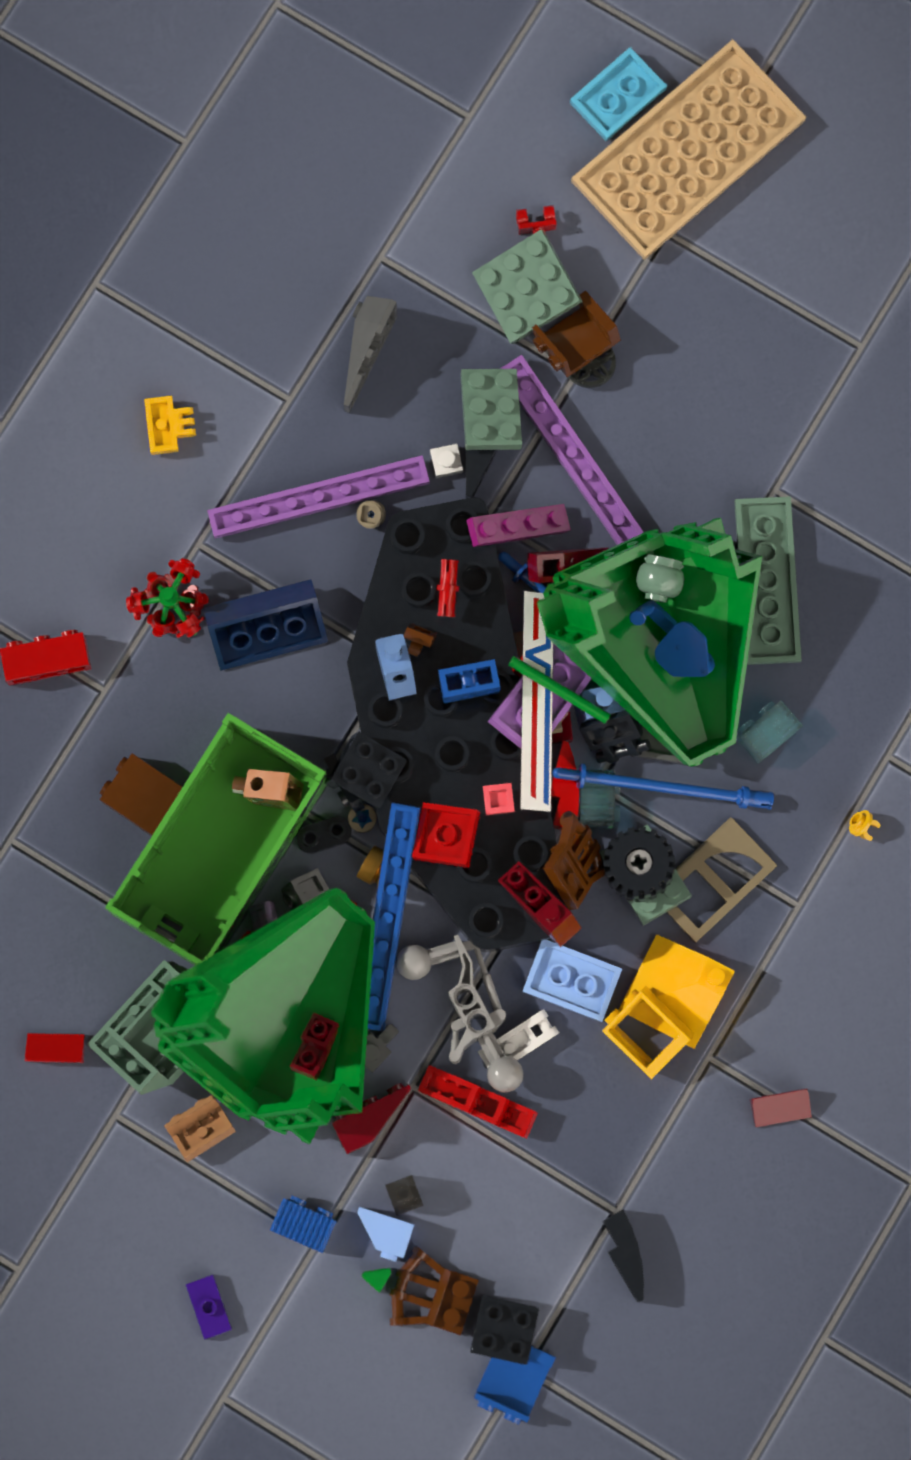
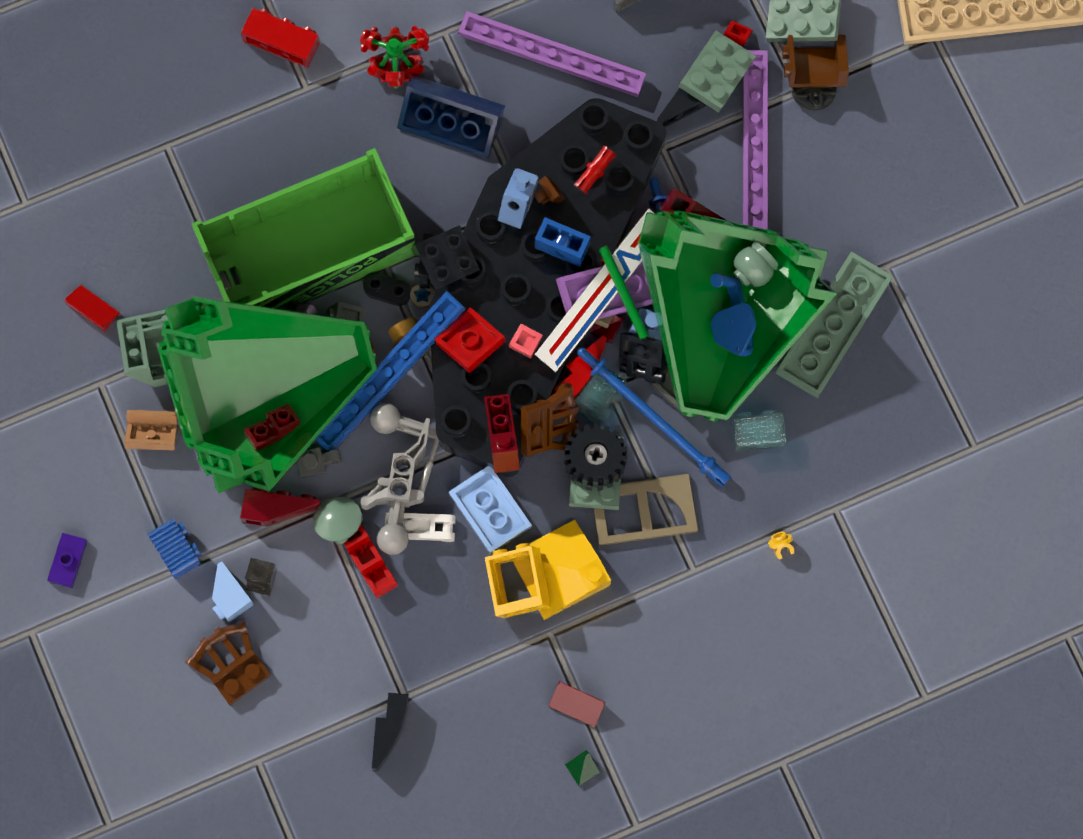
camera: 35 degrees right, 5 degrees down
(140, 793) = (276, 167): reddish brown brick -> none
(270, 789) = (369, 225): nougat torso -> none
(371, 514) = (580, 90): dark tan tile -> none
(377, 1278) = (199, 622): green slope -> none
(438, 1090) = (337, 519): none -> sand green dish
(446, 461) = (661, 89): white plate -> none
(480, 356) = (738, 33): none -> red slope
(504, 1329) = (261, 719): black bracket -> none
(513, 1385) = (244, 762): blue panel -> none
(518, 525) = (679, 163): magenta plate -> none
(827, 1163) = (582, 768): none -> dark green slope

